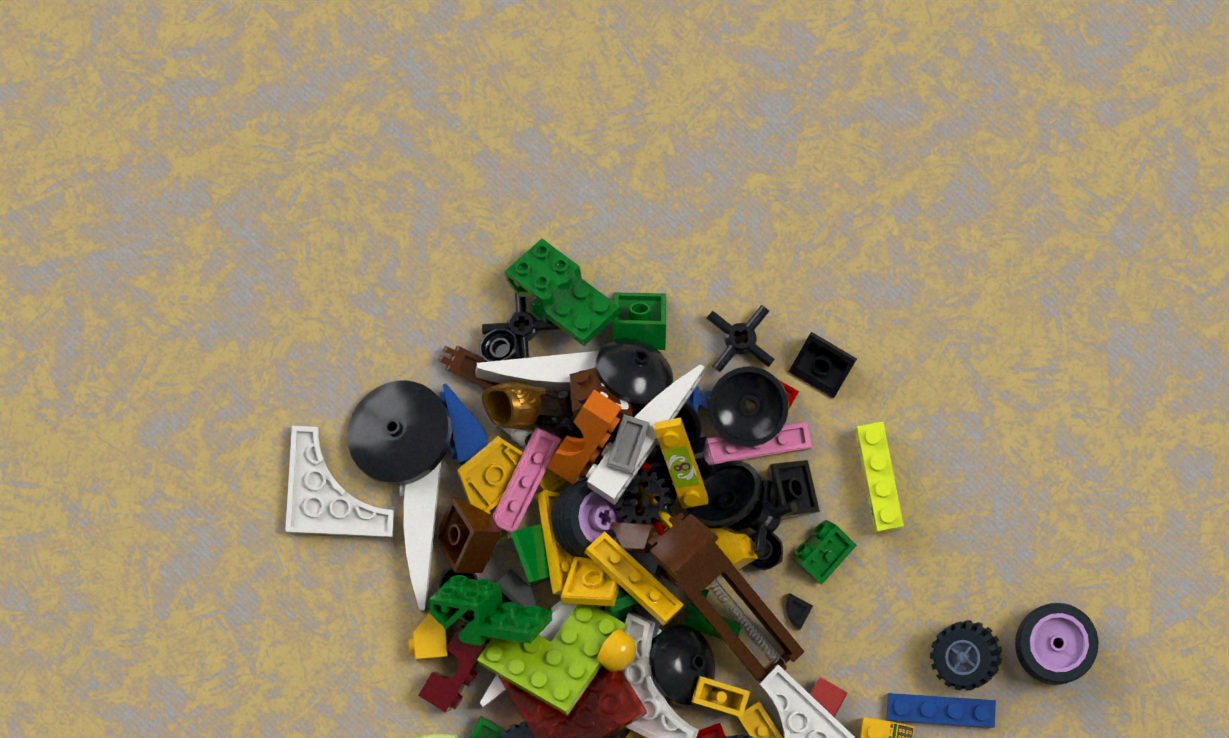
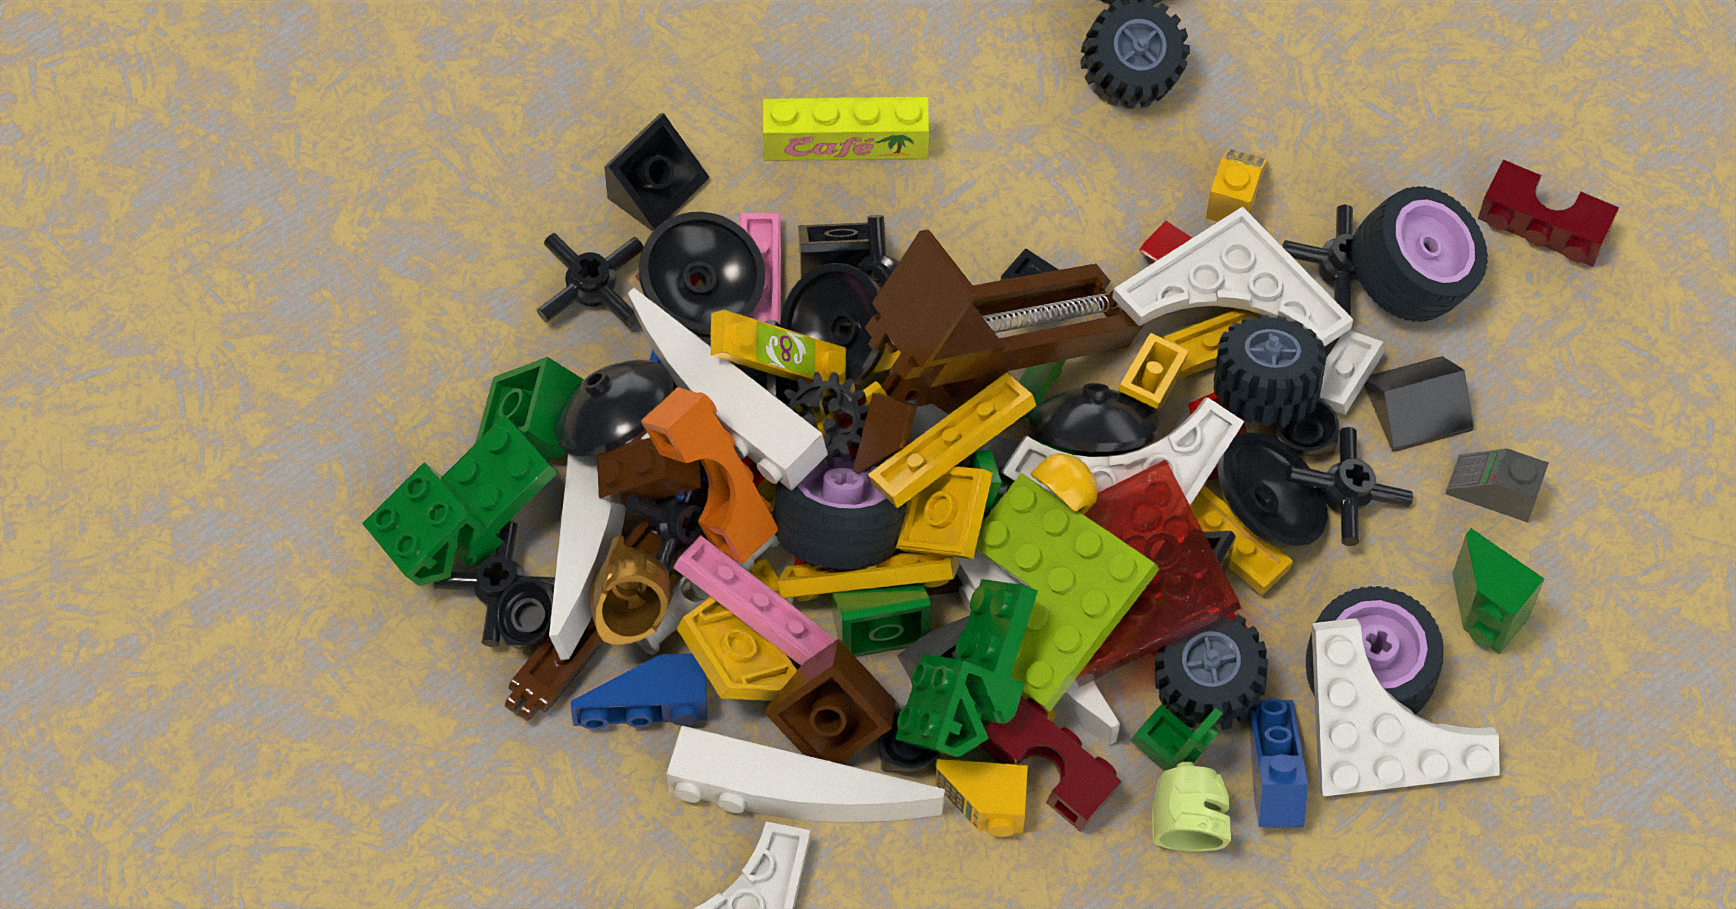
camera: 80 degrees left, 20 degrees down
(399, 432) = (676, 795): black dish -> none
(628, 444) = (742, 401): light grey tile -> none
(823, 551) = (946, 214): green bracket -> none
(941, 710) = (1208, 112): blue plate -> none

